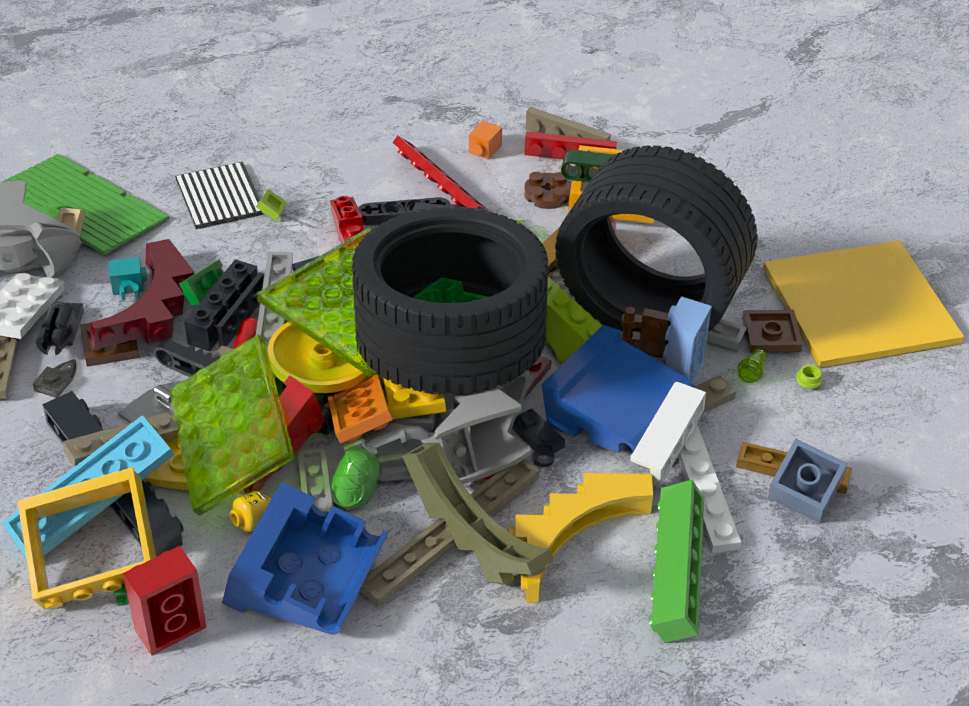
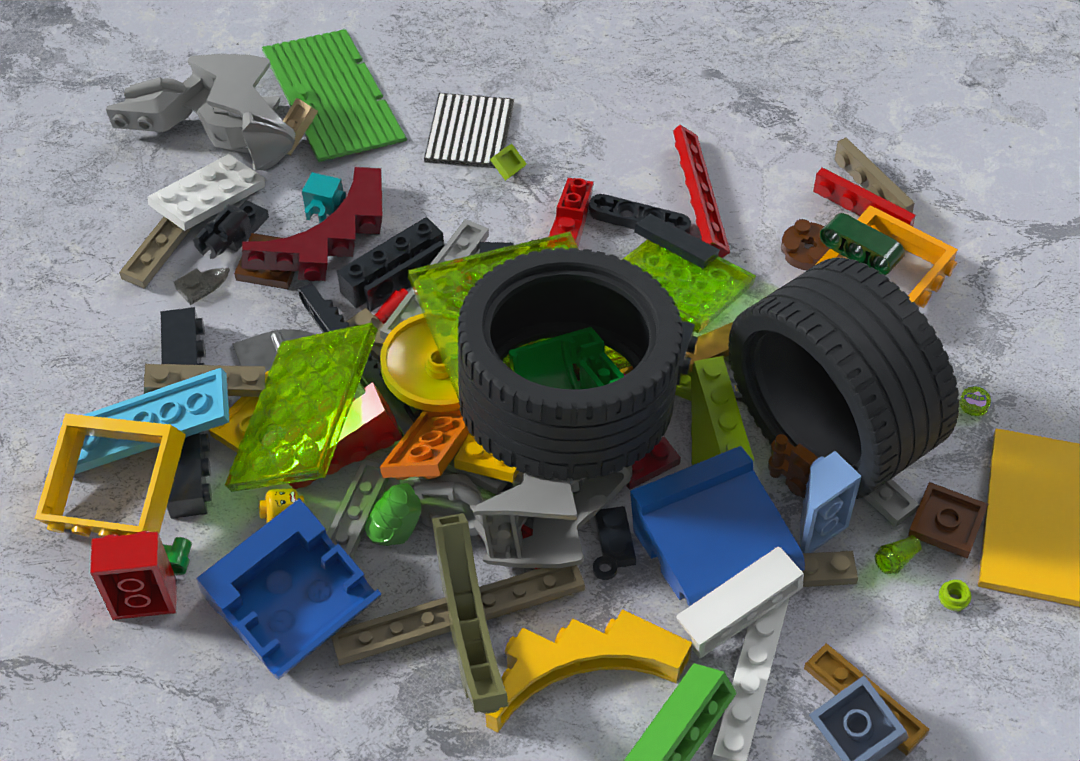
camera: 30 degrees right, 10 degrees up
(200, 283) = (376, 232): green plate -> none
(485, 140) = (776, 160): orange brick -> none

